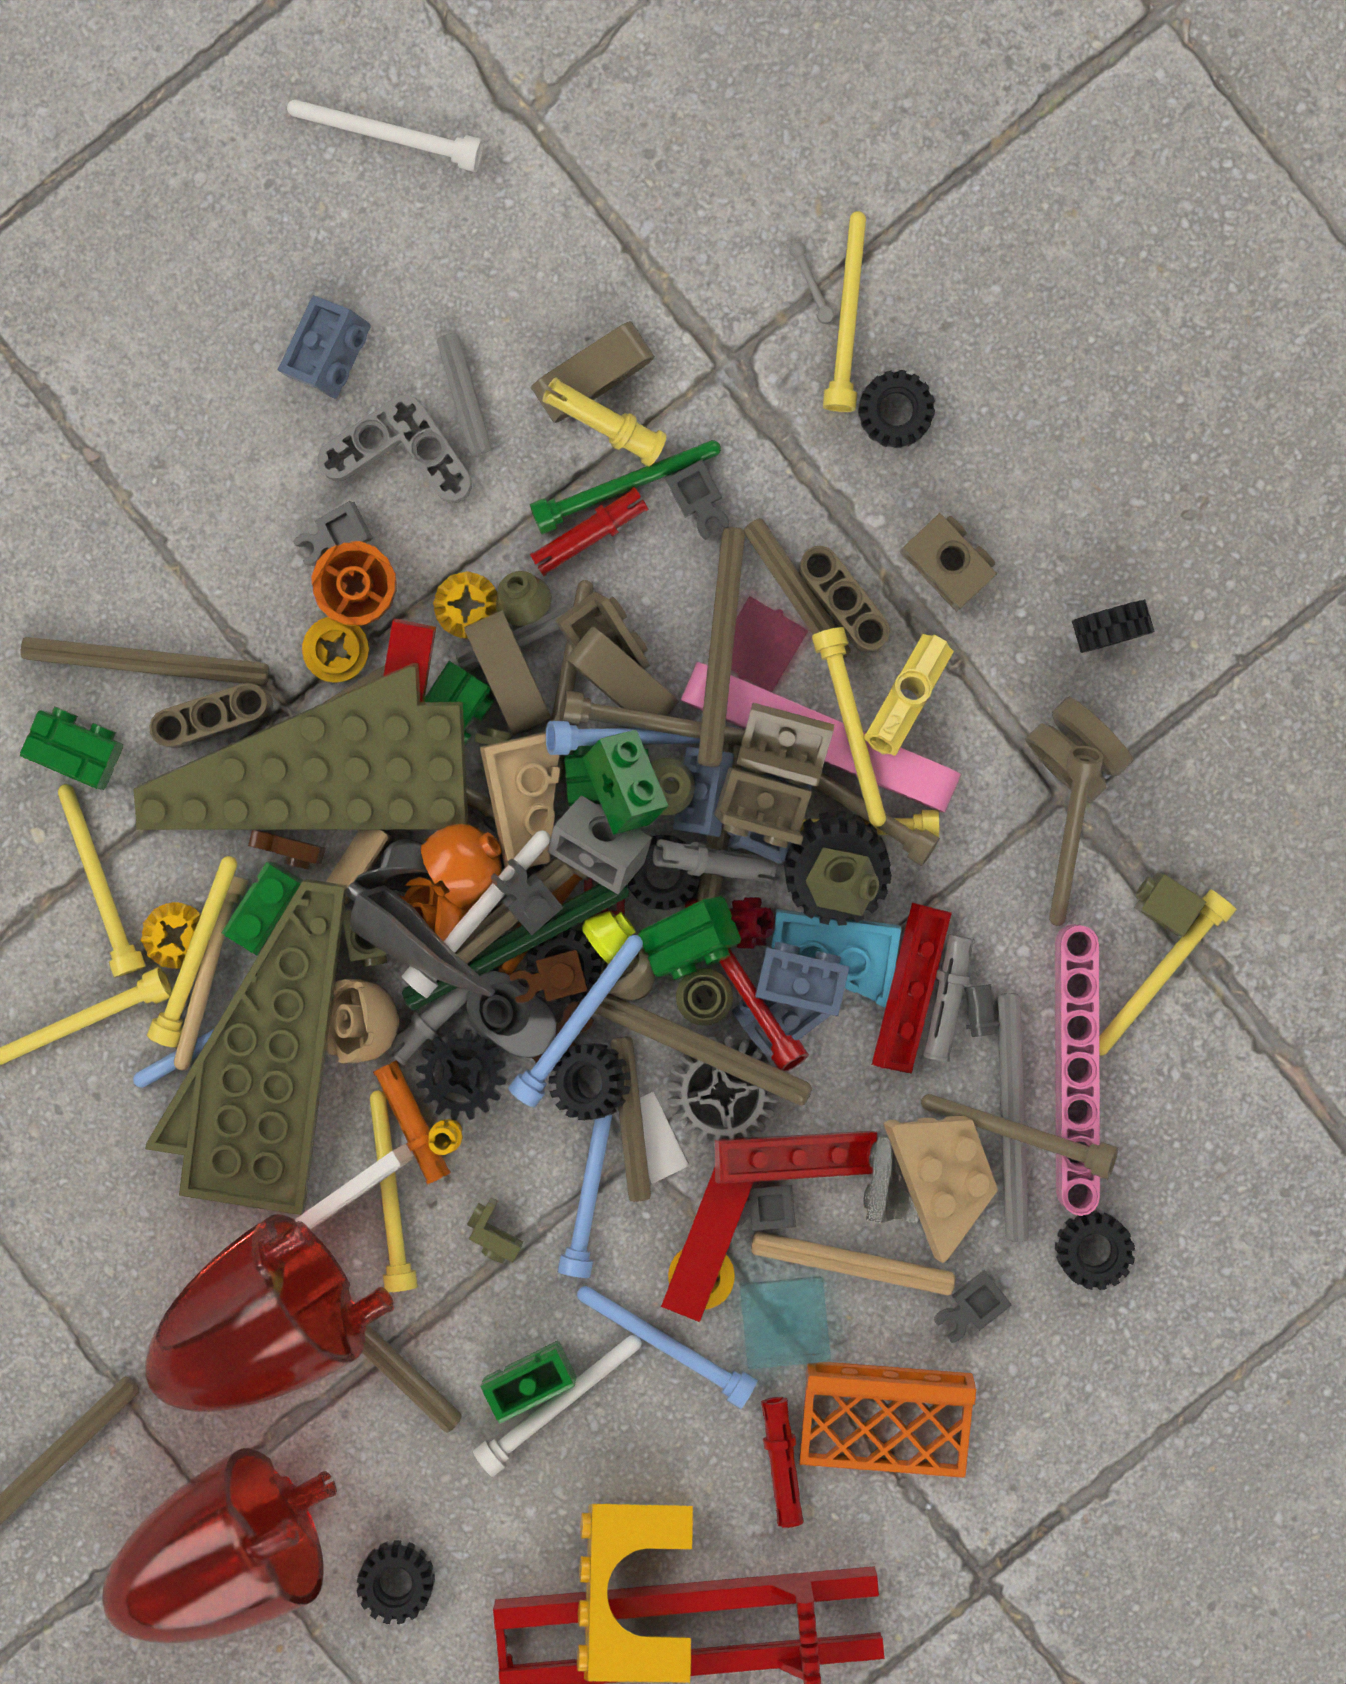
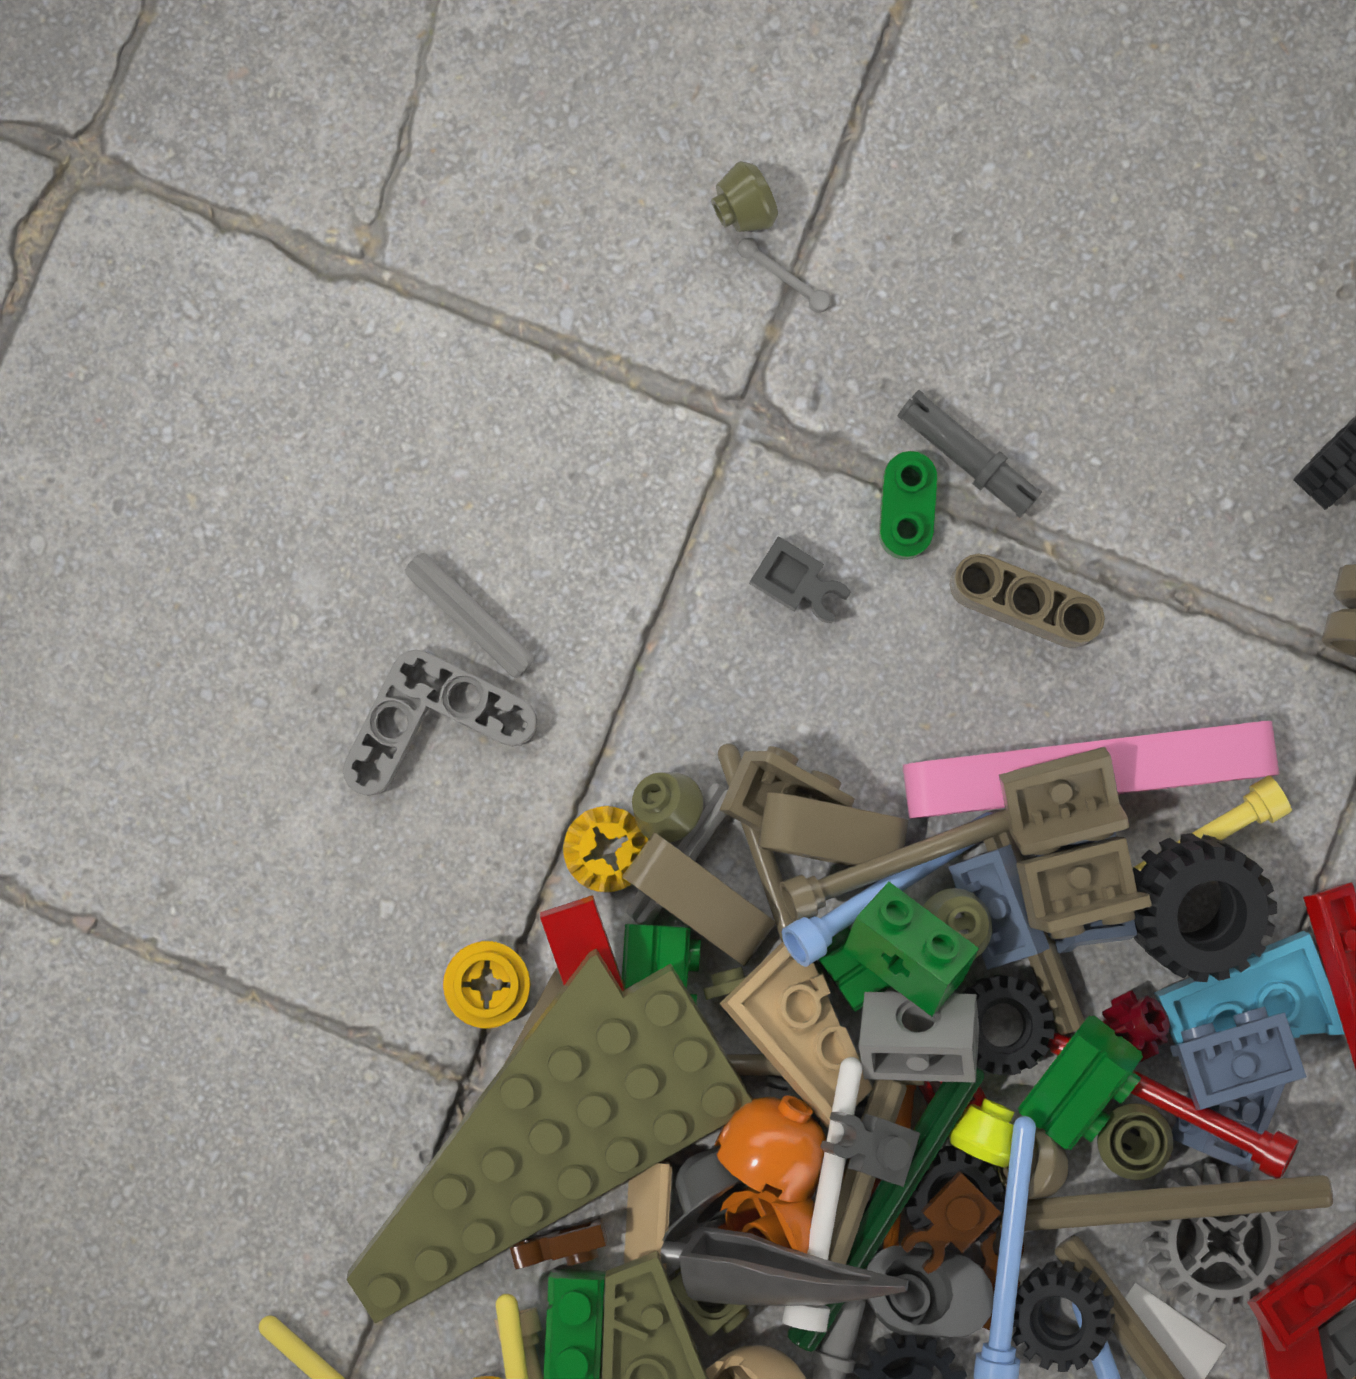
camera: 25 degrees left, 5 degrees down
(71, 748) = (250, 1272): green brick -> none
(144, 661) = (276, 1123): dark tan axle -> none
(191, 715) = (366, 1157): dark tan beam -> none
(325, 346) = (283, 650): sand blue bracket -> none
(335, 528) = (417, 850): dark grey plate -> none
(354, 583) = (469, 898): orange cylinder -> none
(464, 151) = (316, 349): white piece -> none
(550, 513) = (642, 691): green piece -> none
(589, 531) = (697, 688): red pin -> none
(598, 366) = (599, 509): dark tan beam -> none
(621, 429) = (670, 554): light yellow pin -> none
(701, 859) = (1041, 987): light grey pin -> none
(721, 647) = (925, 734): dark tan axle -> none
(764, 644) = (960, 704): clear pink piece -> none
(789, 578) = (967, 621): dark tan axle -> none
(804, 489) = (908, 504): none -> green plate
(813, 215) = (745, 199): none -> olive cone
(831, 646) = (1048, 663): light yellow piece -> none
(840, 394) = (887, 375): light yellow piece -> none
(843, 881) = (1208, 908): olive brick -> none
(865, 479) = (970, 454): none -> dark grey pin
(898, 712) = (1164, 692): light yellow piece -> none
(914, 390) = (982, 336): black tyre -> none
(915, 842) = (1271, 827): dark tan piece -> none
(953, 586) = (1086, 498): dark tan brick -> none

